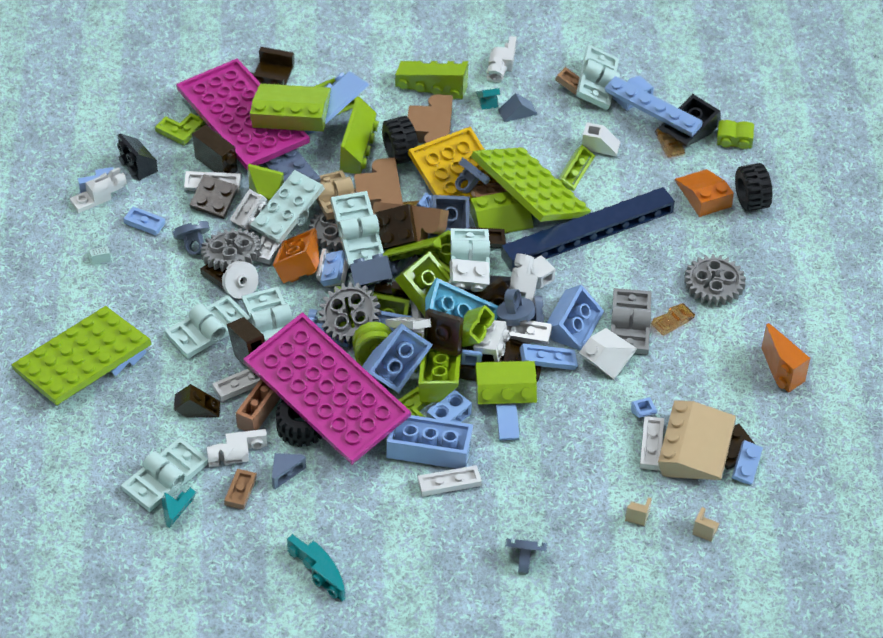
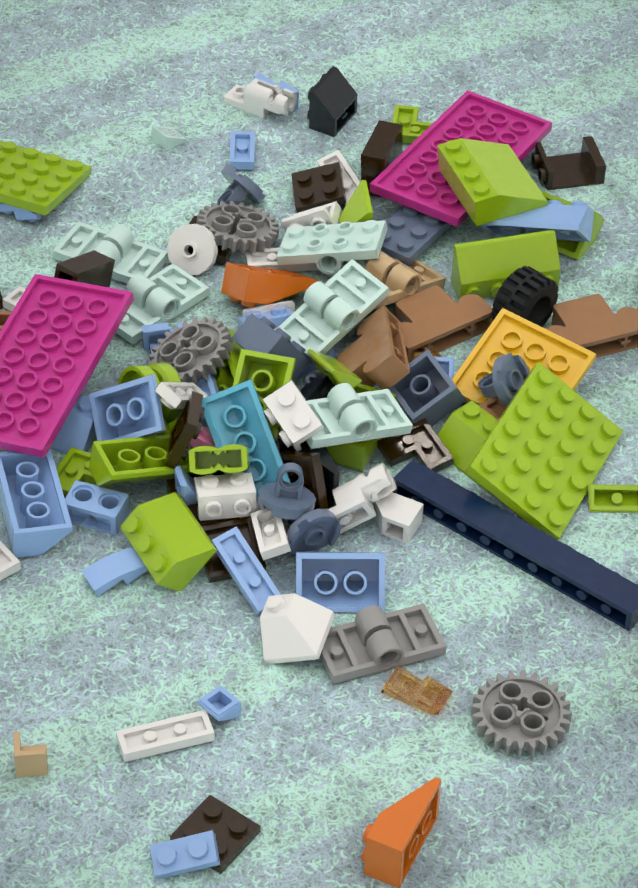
camera: 65 degrees right, 5 degrees down
(396, 226) = (357, 340): dark brown plate -> none
(696, 441) = (185, 777): tan slope -> none
(705, 527) = (42, 839): tan panel -> none

